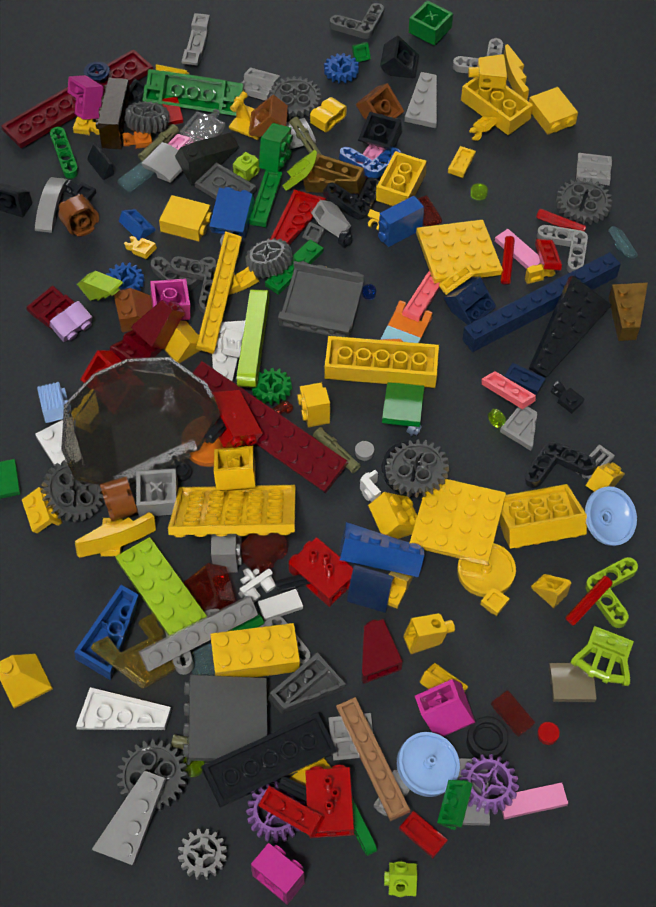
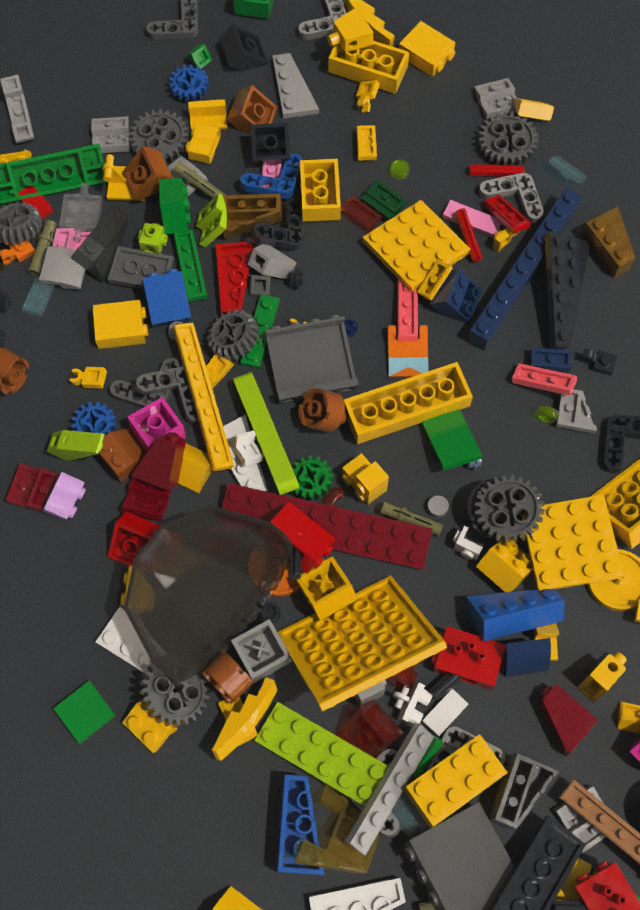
camera: 25 degrees left, 10 degrees up
(52, 401) = (96, 599): light blue brick -> none
(136, 224) = (69, 351): blue slope -> none
(307, 338) = (322, 410): none -> dark orange brick
(345, 94) = (208, 112): none -> yellow panel
(374, 216) = (317, 241): yellow tile -> none
(400, 221) = (345, 237): blue brick -> none
(450, 208) = (383, 200): none -> dark green plate
(618, 186) = (533, 109): none -> yellow slope

